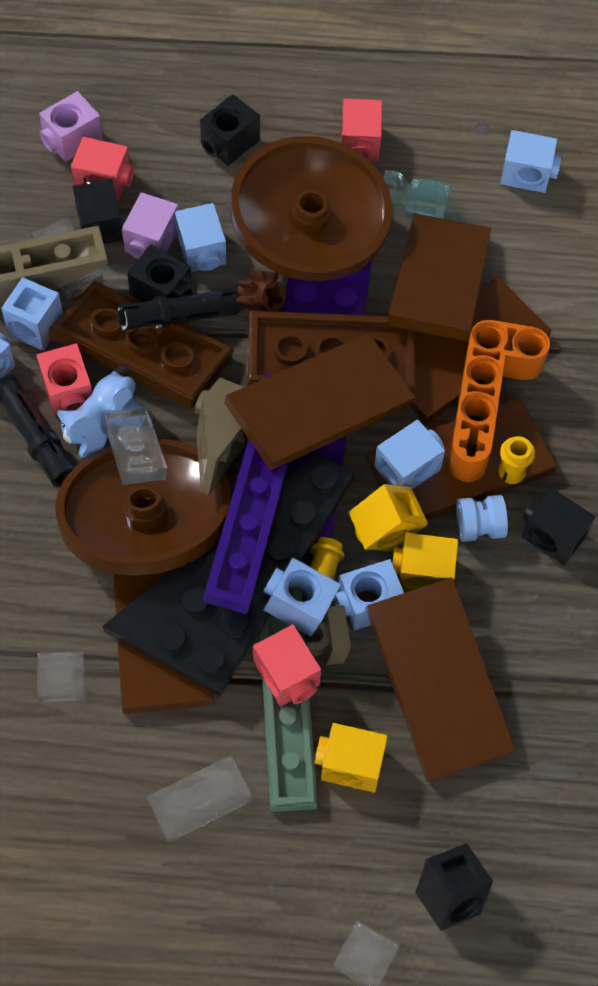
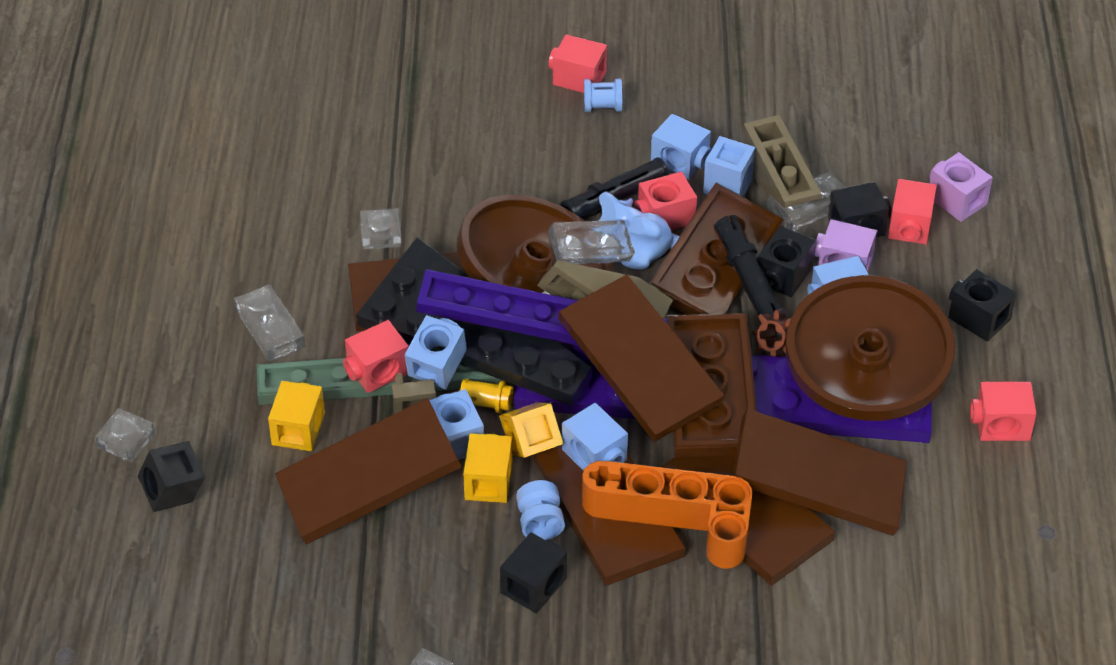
camera: 90 degrees right, 15 degrees down
(419, 197) = (927, 467): clear light blue plate -> none
(516, 456) = (596, 518): yellow pin -> none
(530, 161) = (993, 559): light blue brick -> none

